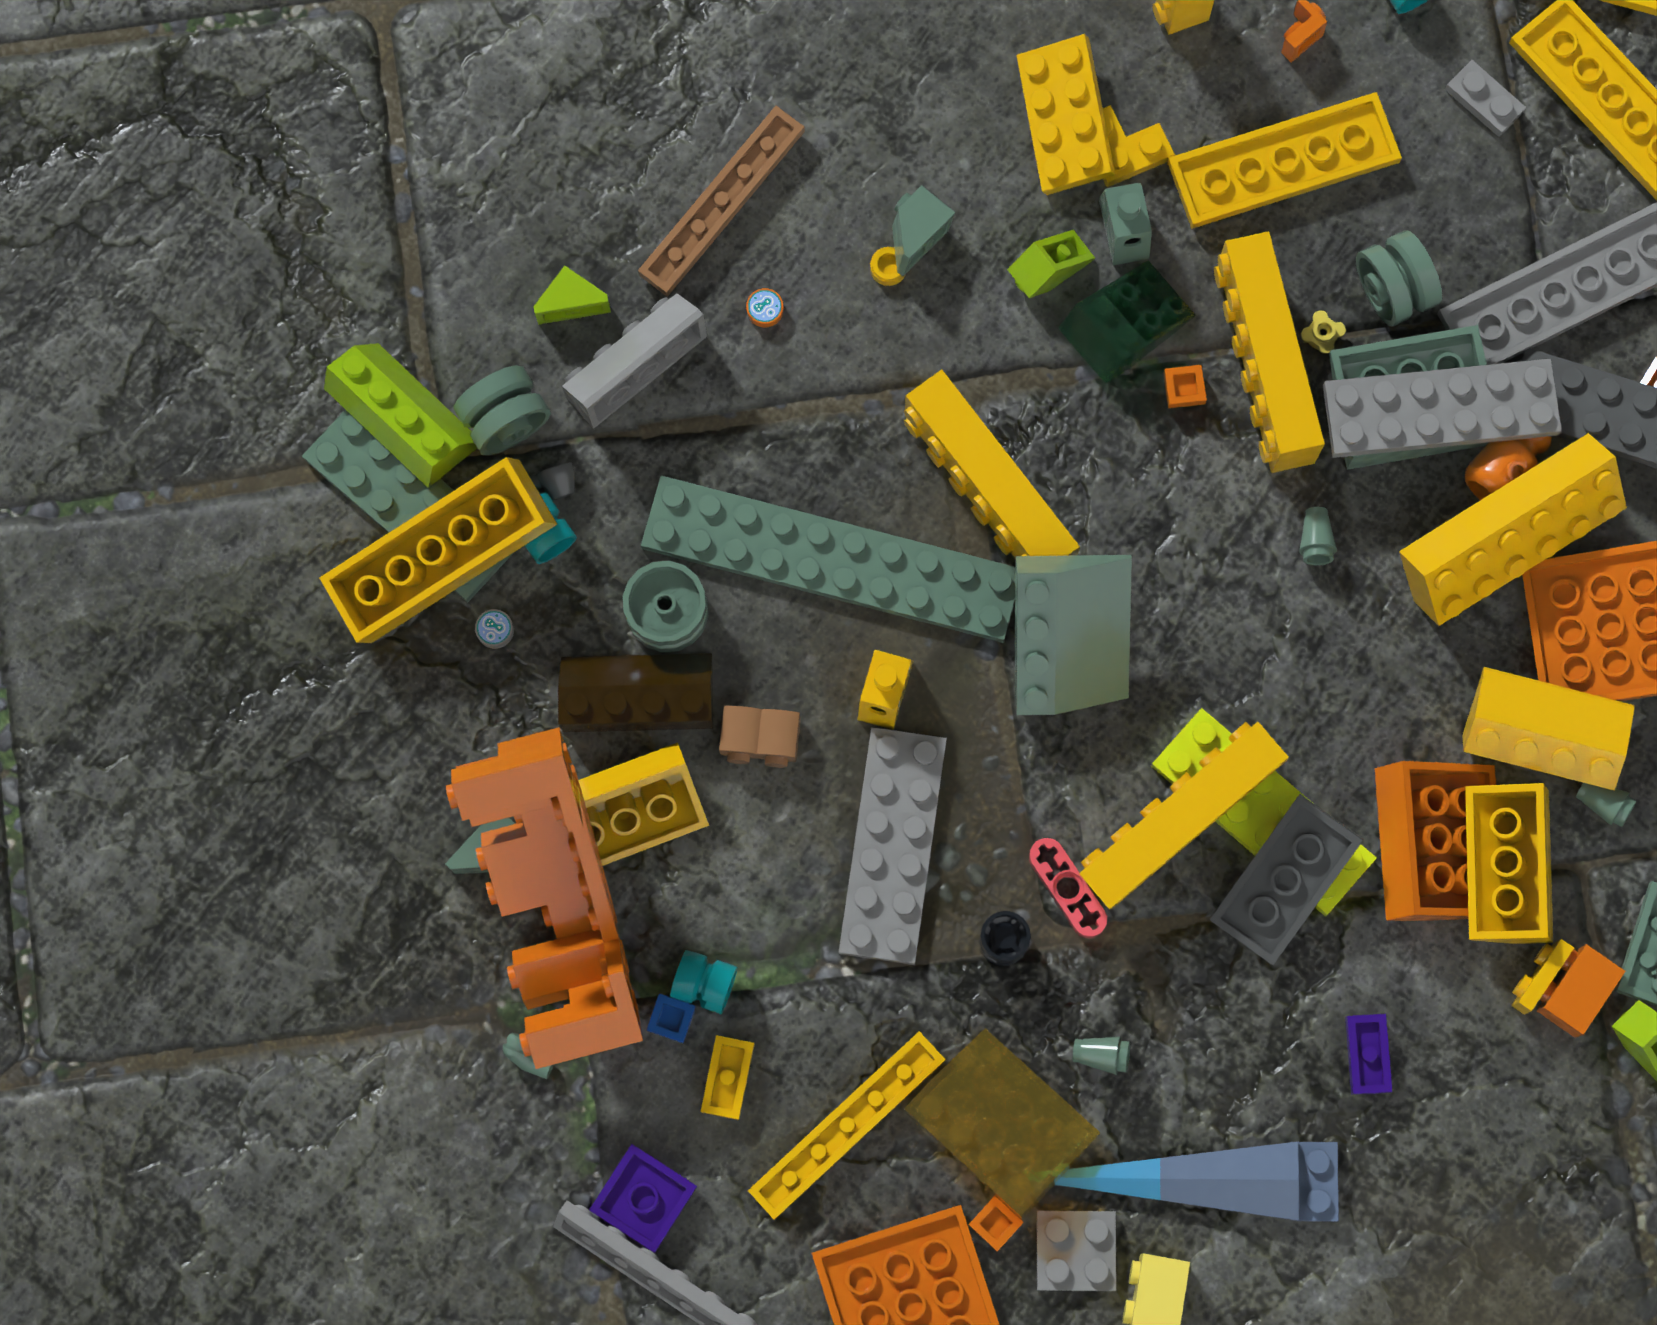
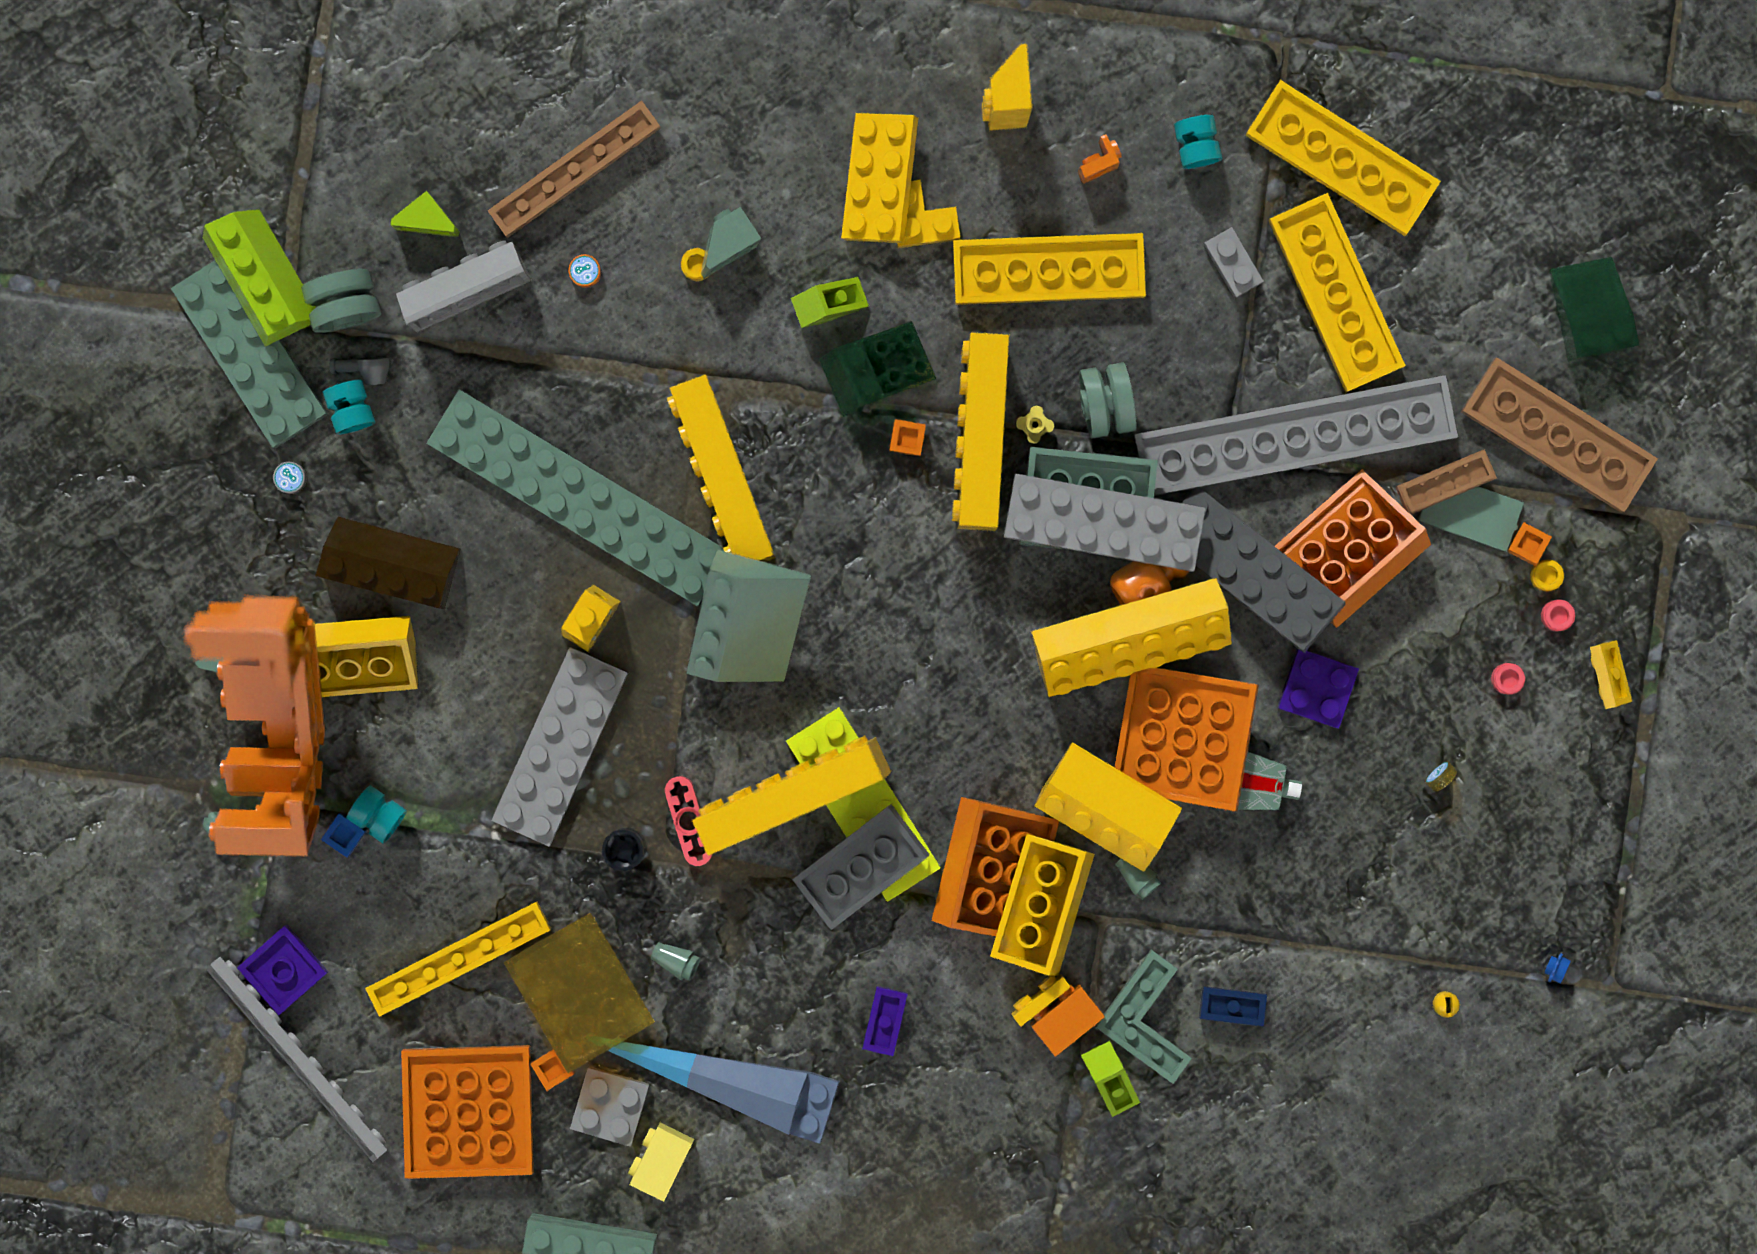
camera: 10 degrees right, 10 degrees up
(438, 550) = (255, 405): yellow brick -> none
(676, 587) = (449, 502): sand green wheel -> none
(727, 1077) = (375, 894): yellow plate -> none
(759, 735) = (477, 627): medium nougat brick -> none
(1126, 218) = (900, 287): sand green torso -> none
(1317, 537) = (975, 595): sand green cone -> none

